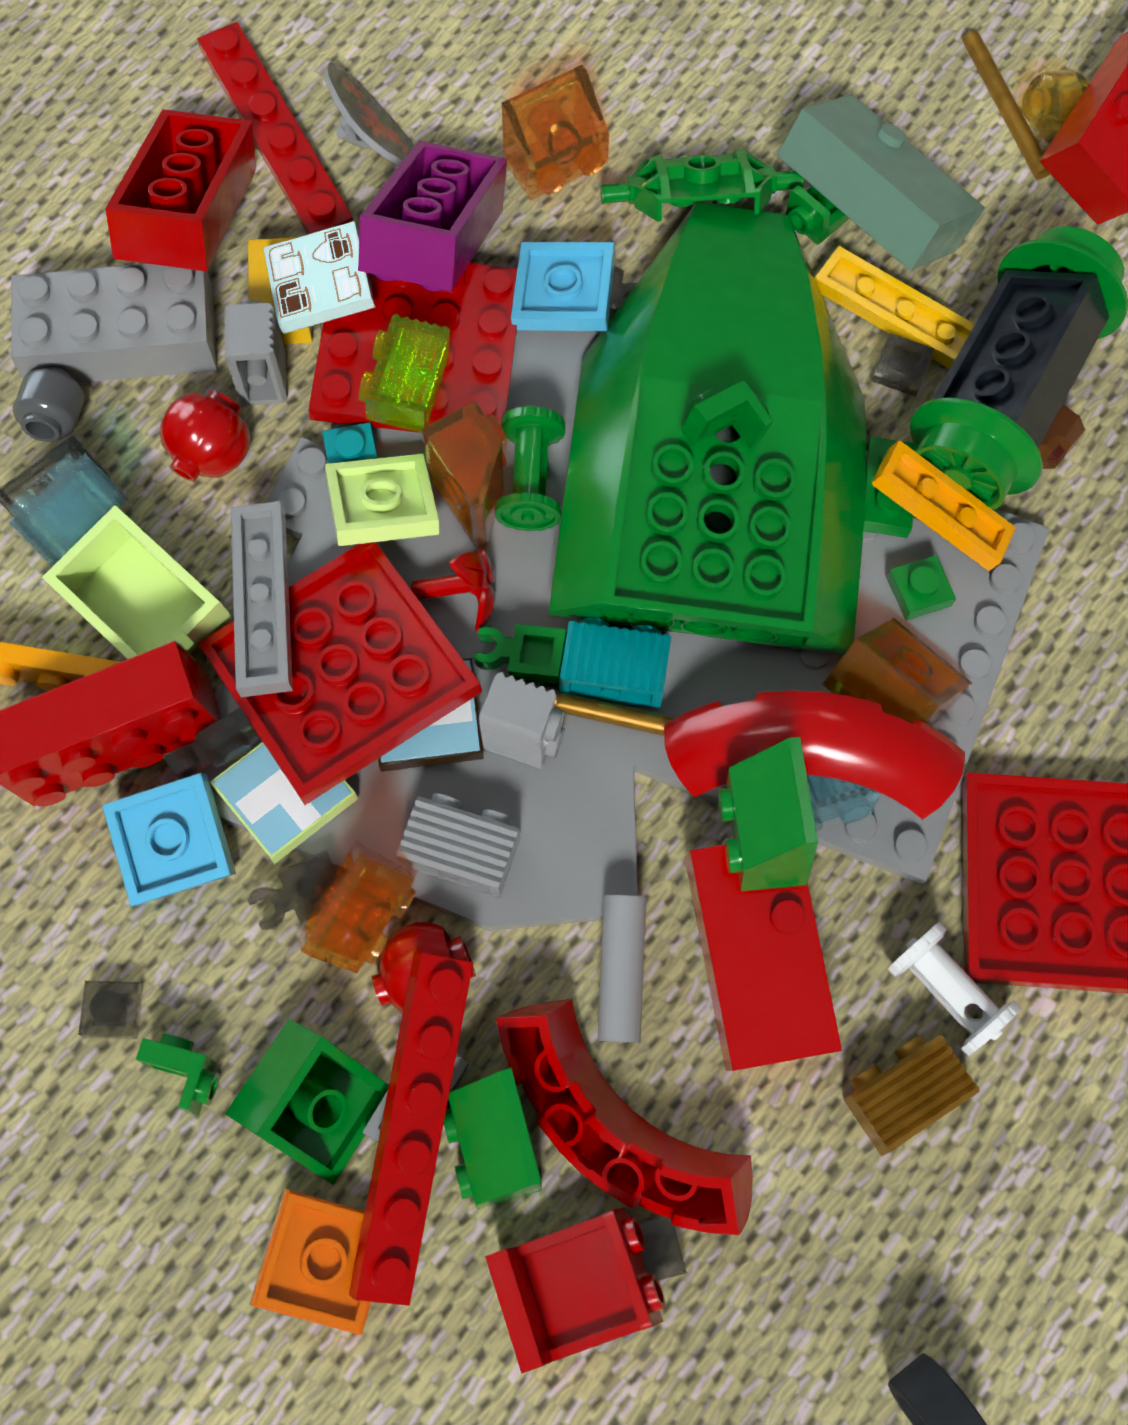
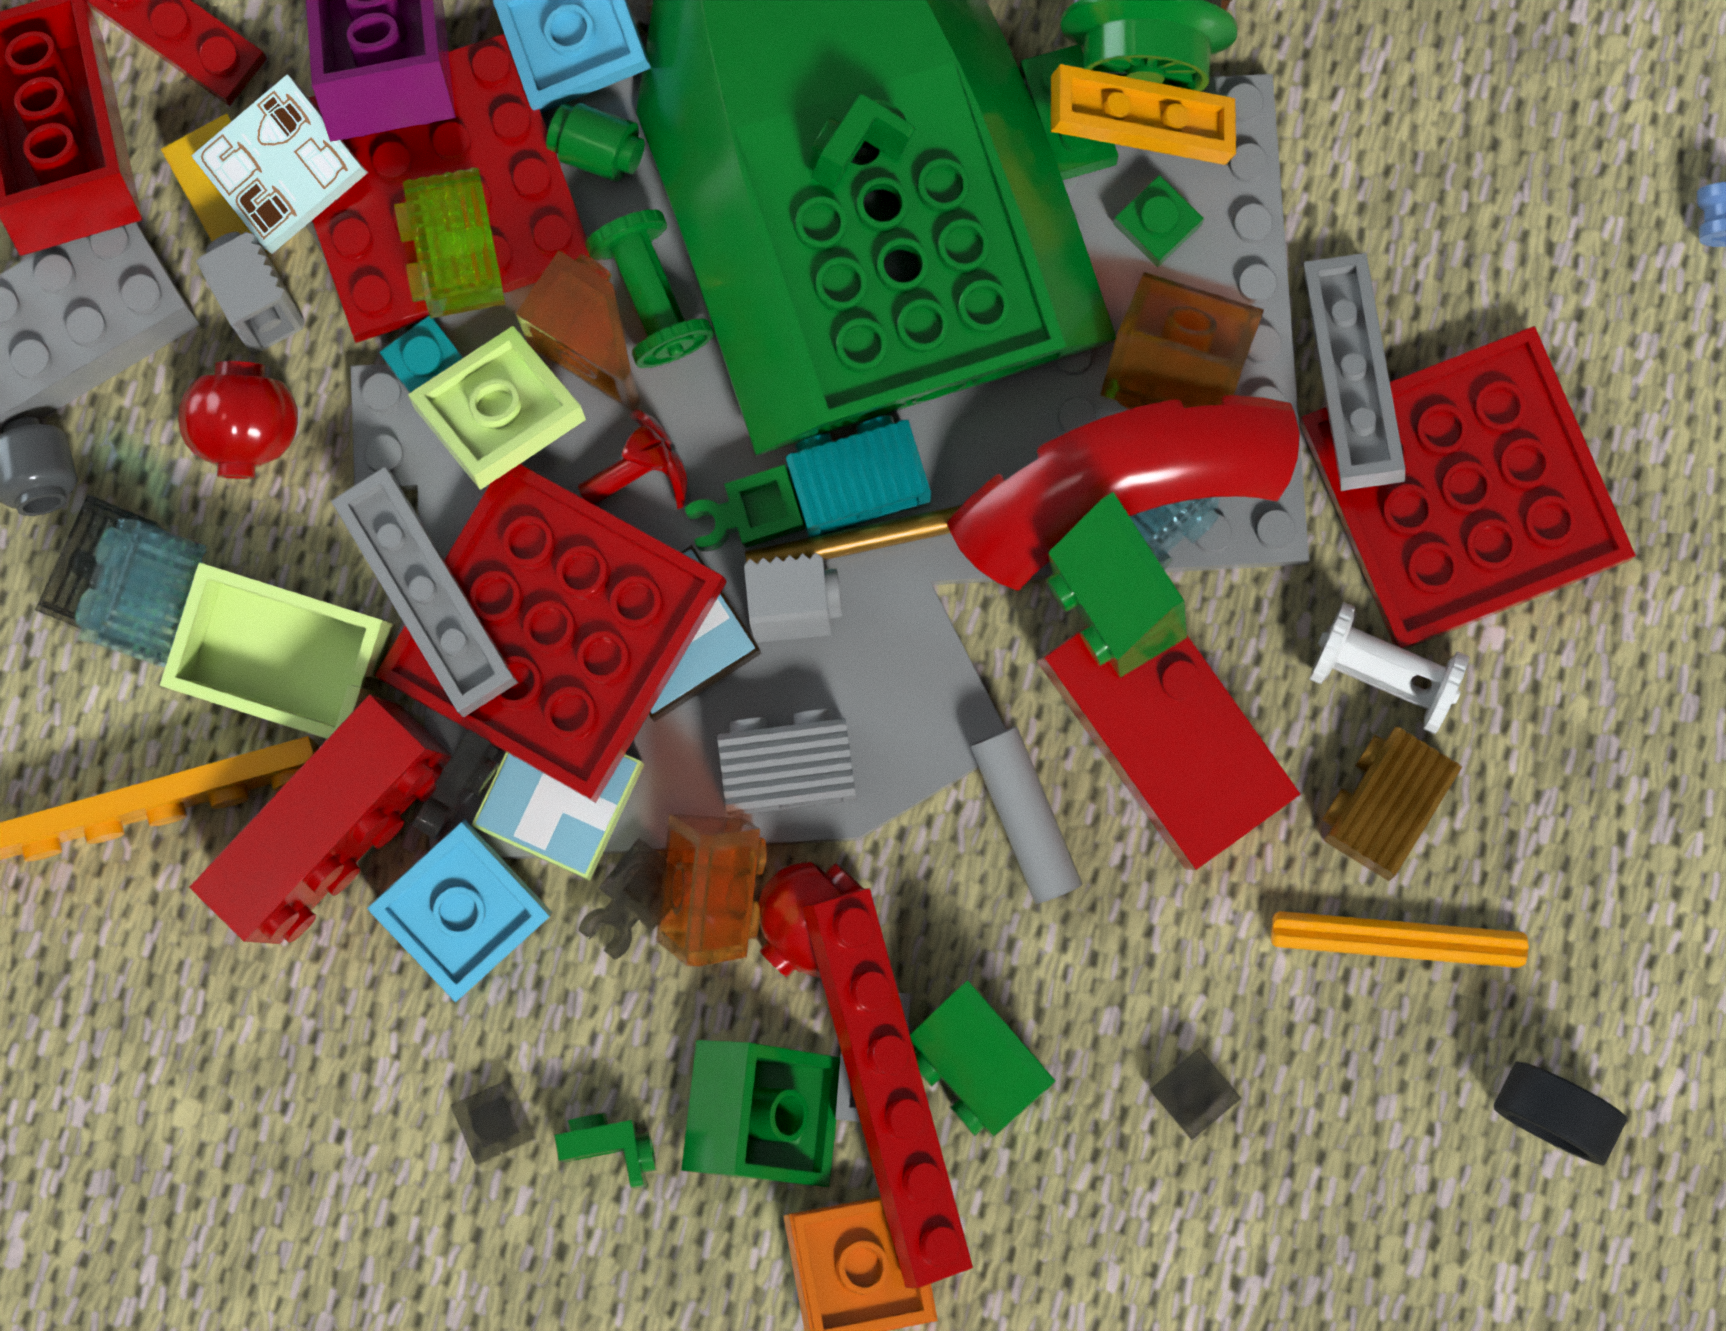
camera: 20 degrees left, 10 degrees up
(544, 360) = (595, 141): none -> green brick
(576, 1289) = (1136, 1167): red panel -> none
(608, 1138) = (1099, 1000): red brick -> none
(871, 1207) = (1399, 939): none -> light orange axle
(1021, 758) = (1354, 372): none -> light grey plate

